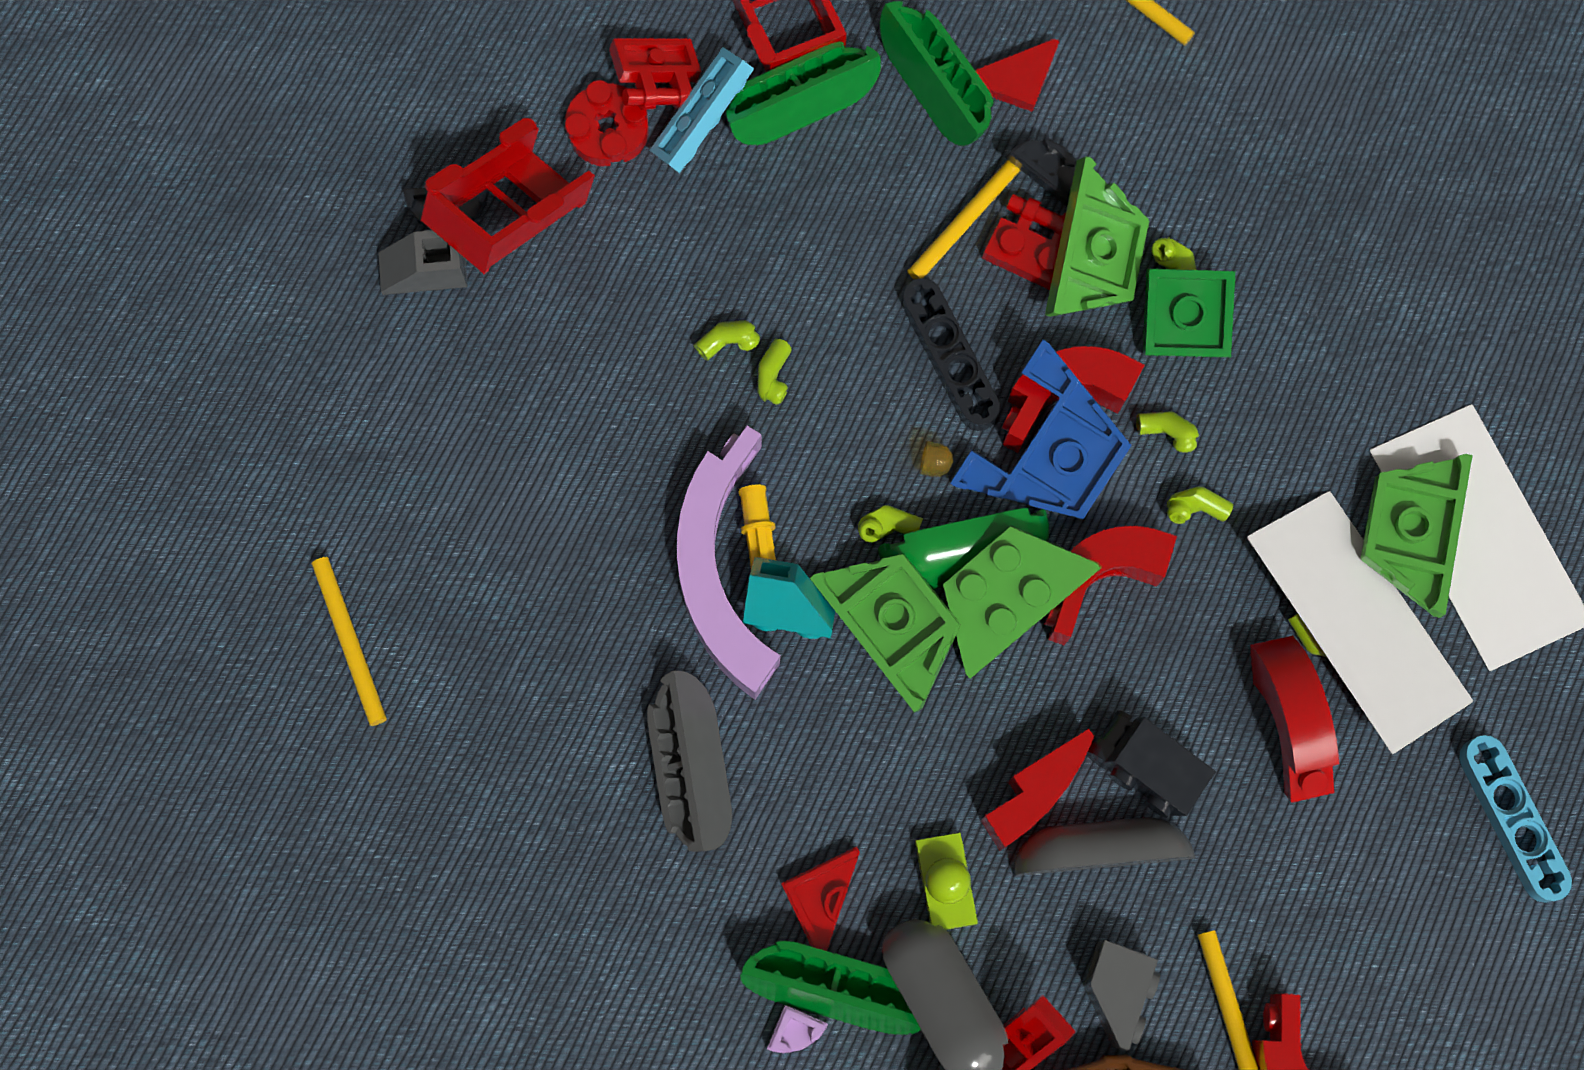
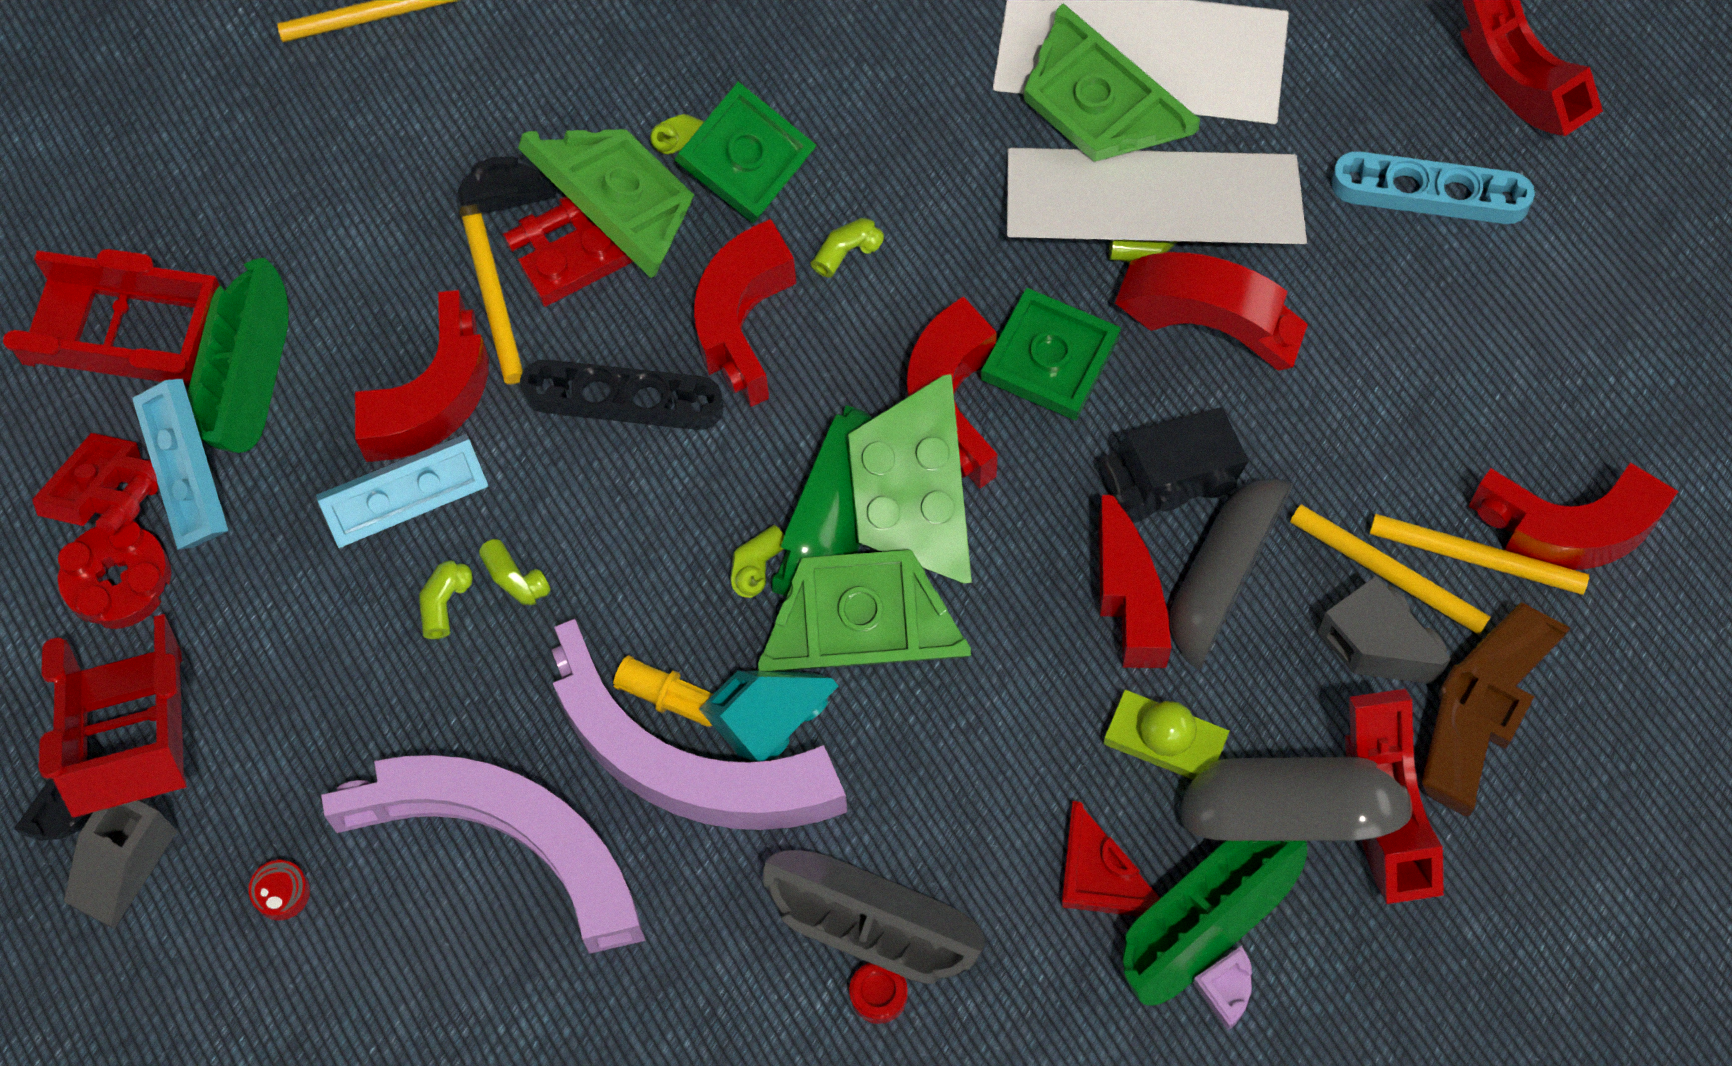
camera: 50 degrees left, 10 degrees down
(469, 376) = (279, 890): none -> red tile
(609, 539) = (509, 804): none -> lavender arch
(641, 800) = (878, 994): none -> red tile
(782, 261) = (402, 490): none -> medium azure plate
(865, 238) = (436, 403): none -> red arch
(935, 459) = (720, 475): clear yellow hinge -> none
(936, 72) = (322, 224): green brick -> none
(1020, 76) = (384, 160): red tile -> none
(1067, 456) = (809, 347): blue wing -> none
(1178, 966) = (1390, 569): none -> yellow bar
(1181, 624) = (1051, 354): none -> green plate
(1197, 499) = (934, 266): lime arm -> none

